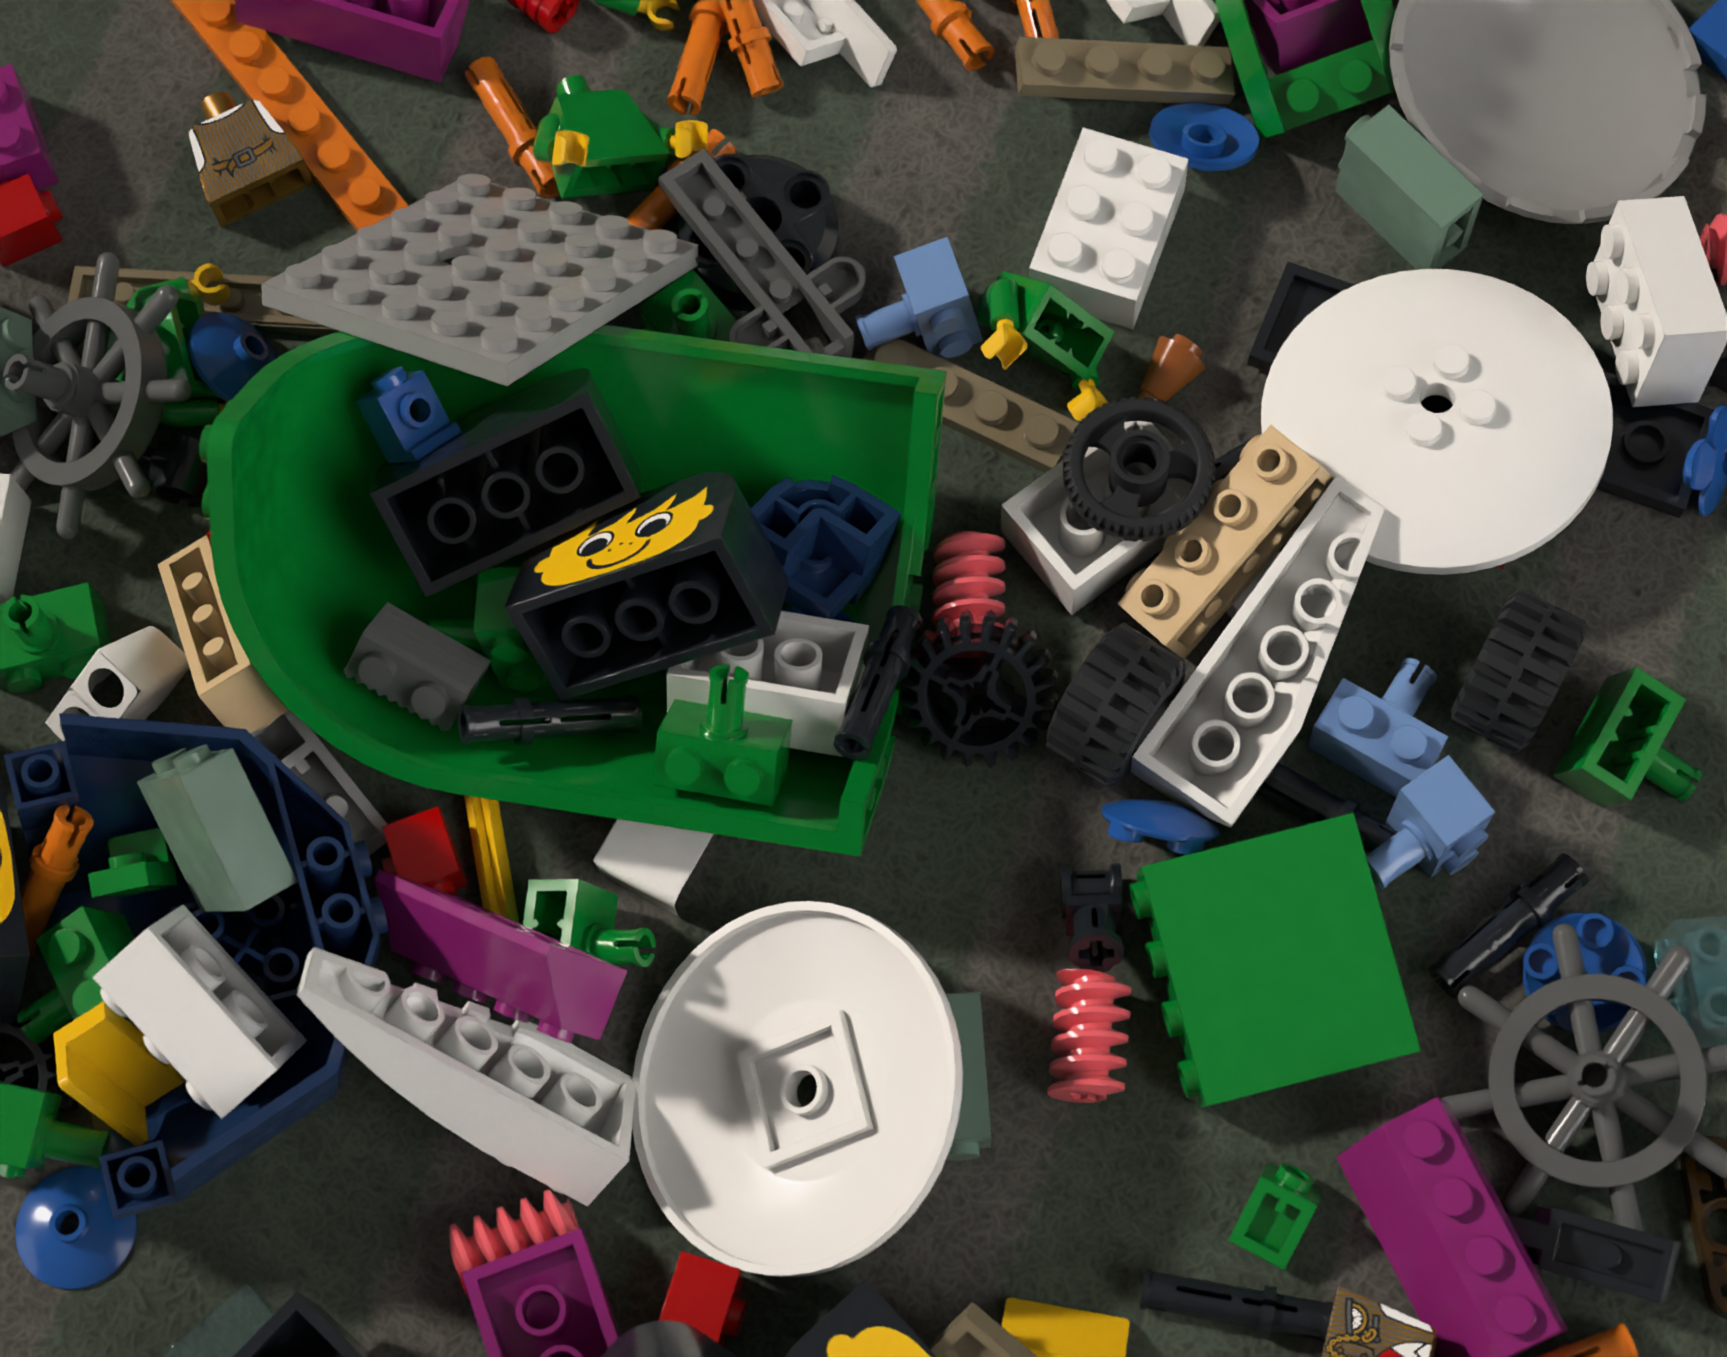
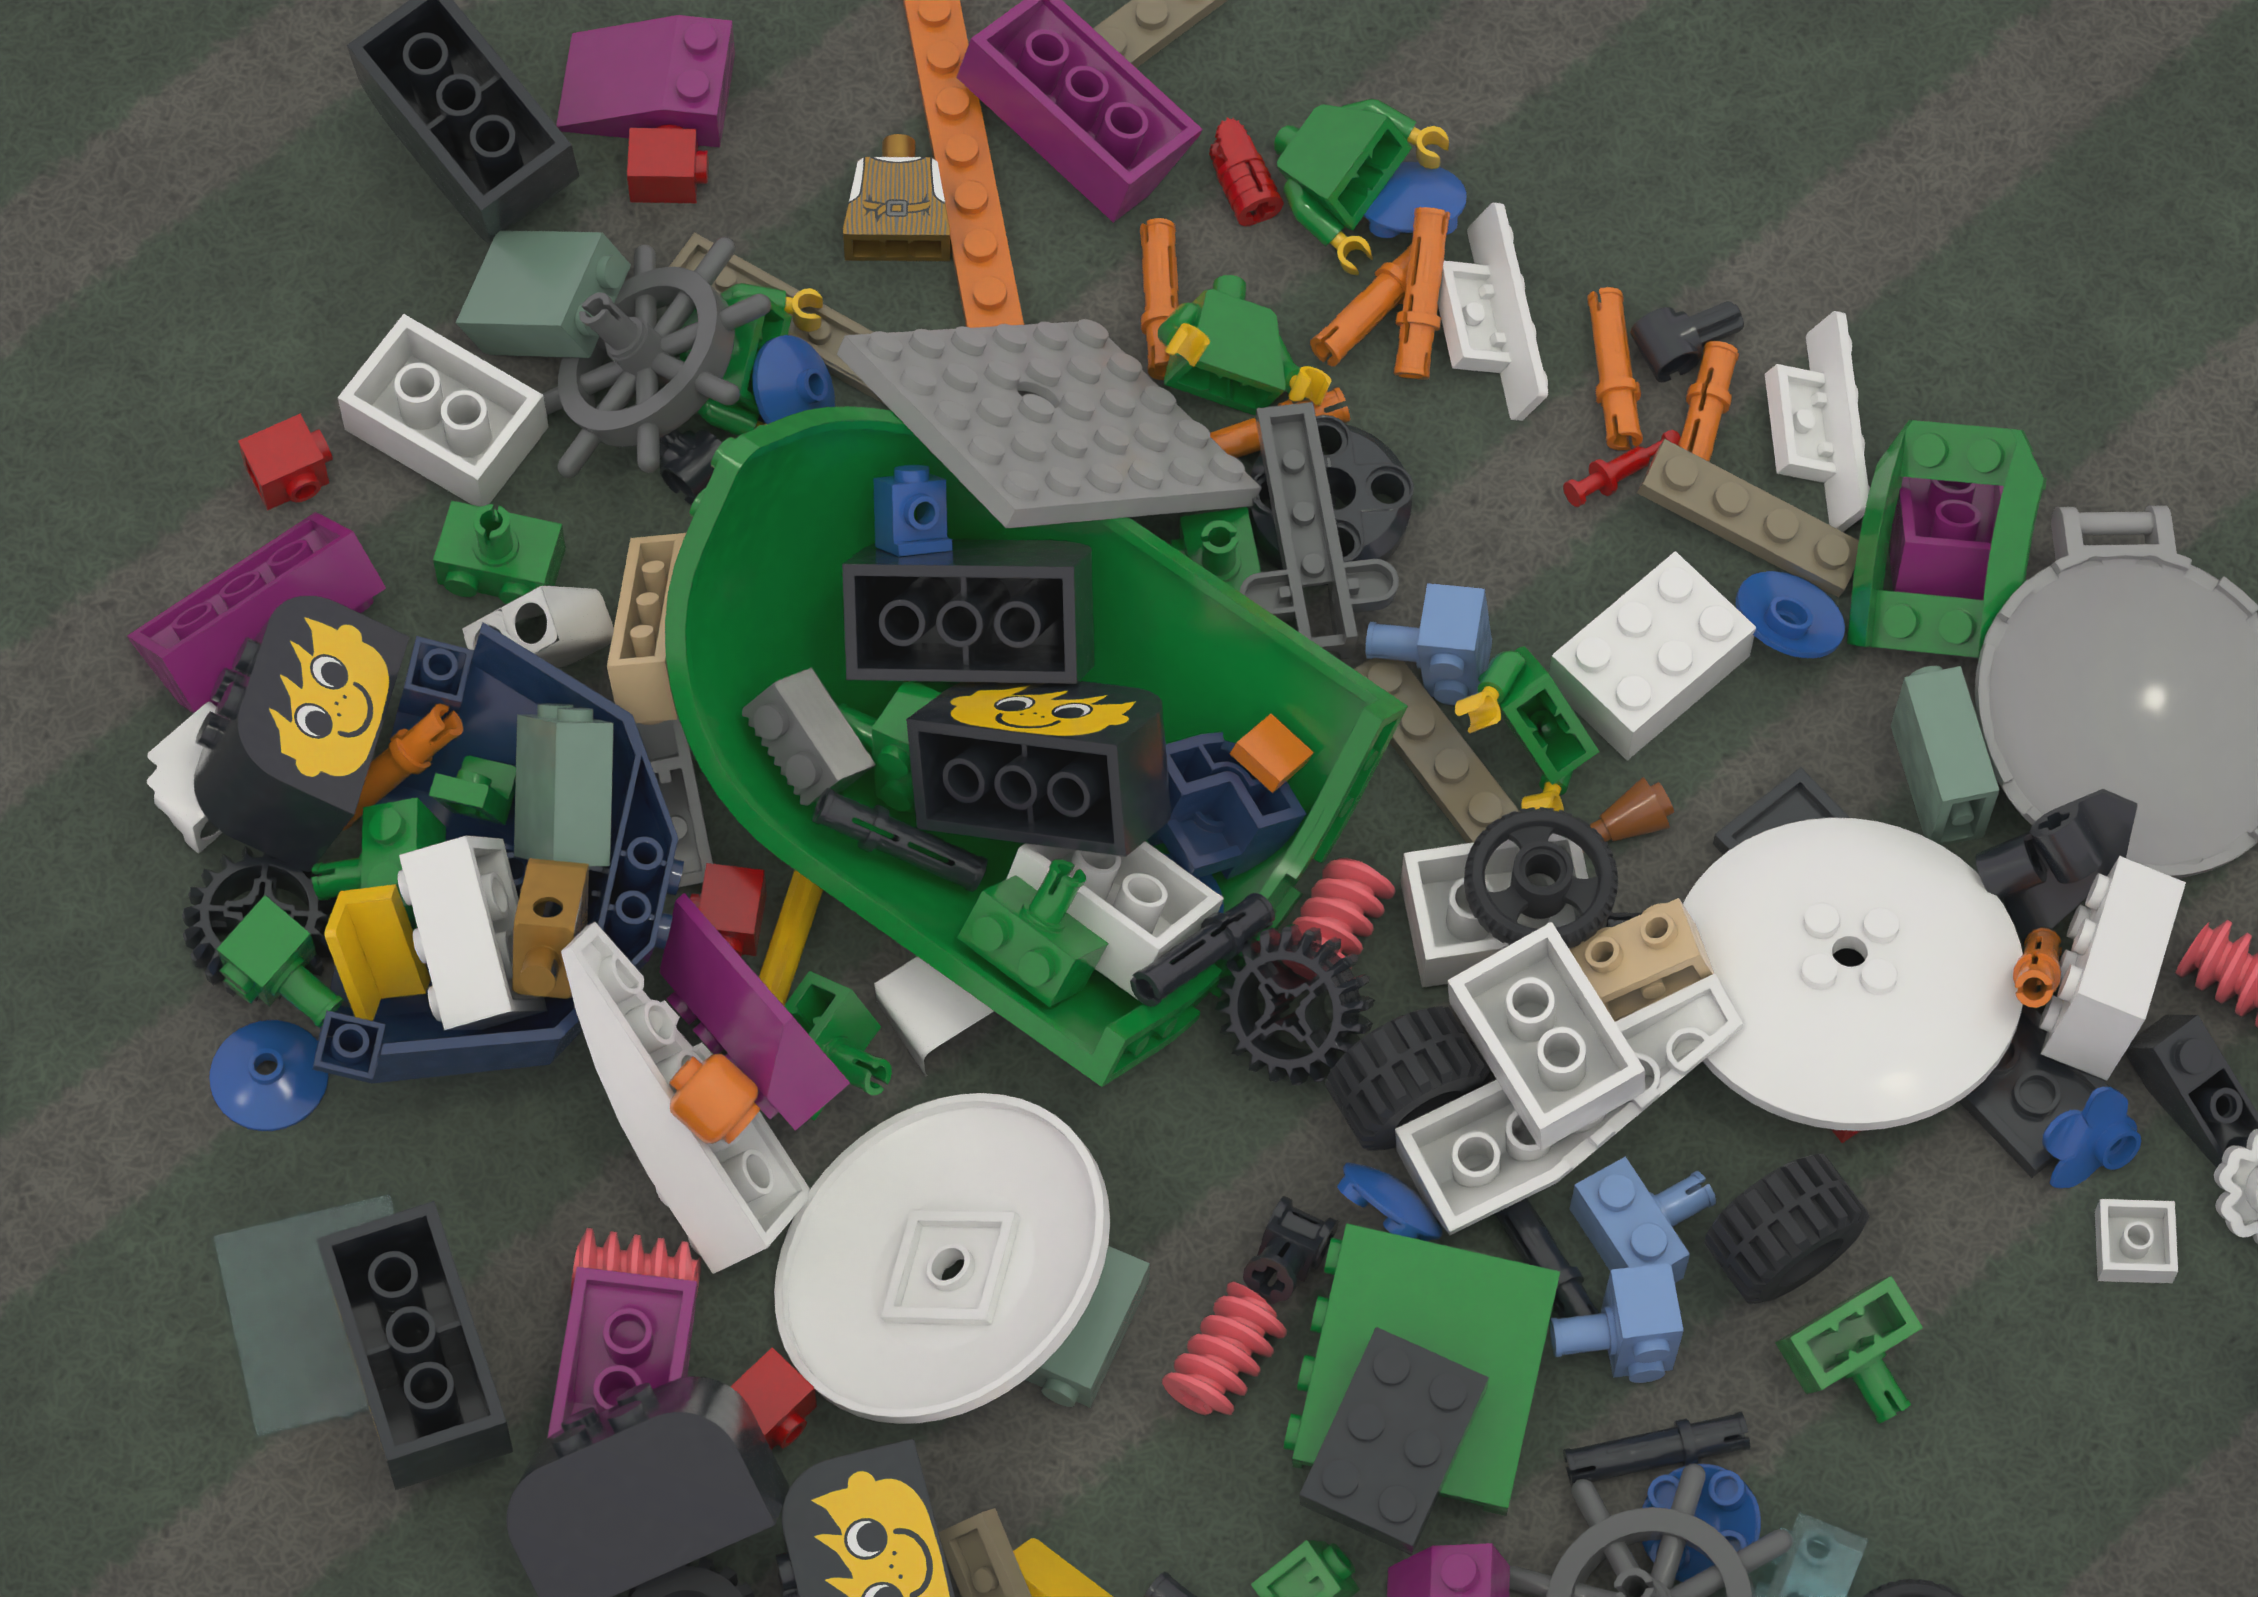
camera: 20 degrees right, 5 degrees down
(271, 990) = (540, 939): none -> pearl gold torso
(511, 1054) = (713, 1098): none -> orange head
(842, 473) = (1271, 753): none -> orange tile
(980, 95) = (1606, 476): none -> red piece
(1230, 606) = (1546, 1036): none -> white brick
(1297, 1046) = (1393, 1441): none -> black brick
(1560, 229) = (2055, 863): none -> black panel
(1601, 333) = (2038, 968): none -> orange pin

